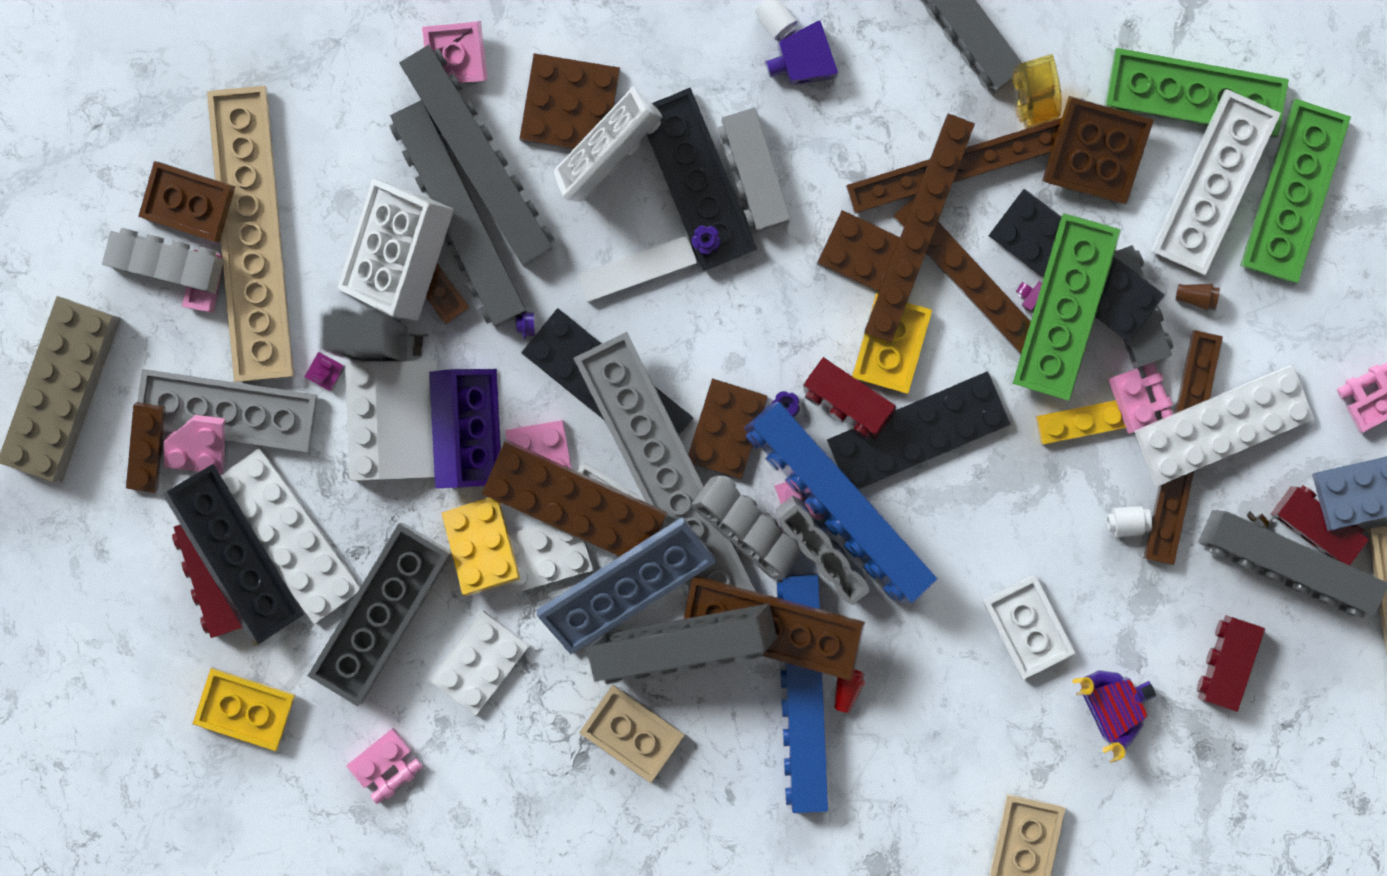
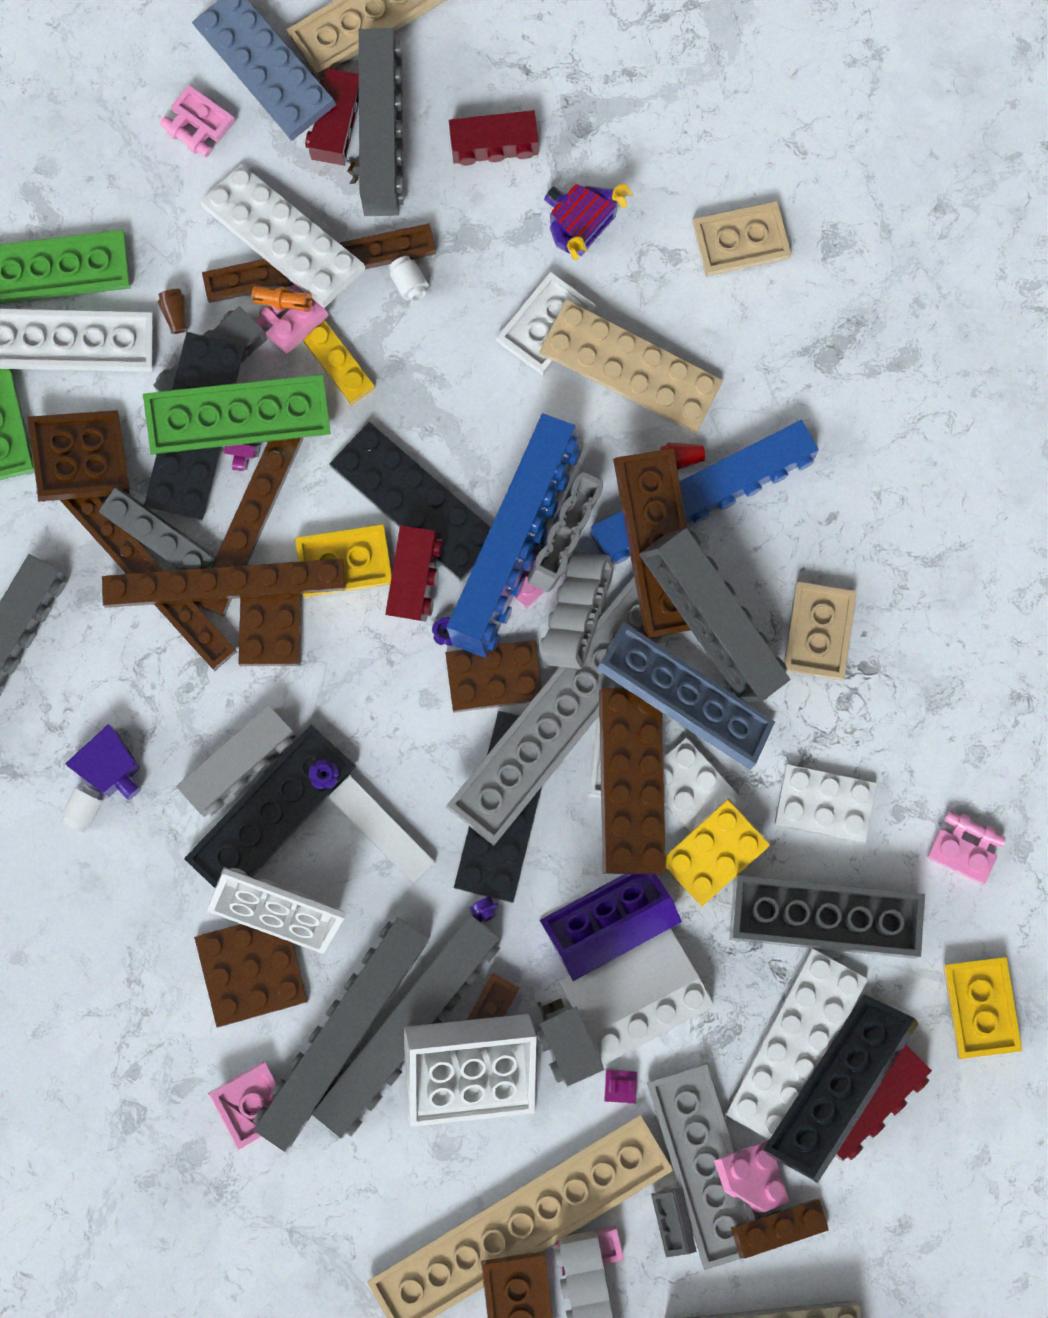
camera: 110 degrees left, 10 degrees down
(192, 362) = (673, 1222): none -> dark grey plate
(545, 439) = (585, 842): bright pink plate -> none
(951, 683) = (630, 366): none -> tan plate
(993, 188) = (155, 532): none -> dark grey plate
(1038, 91) = (46, 532): clear yellow brick -> none
(1161, 397) = (281, 298): none -> orange pin

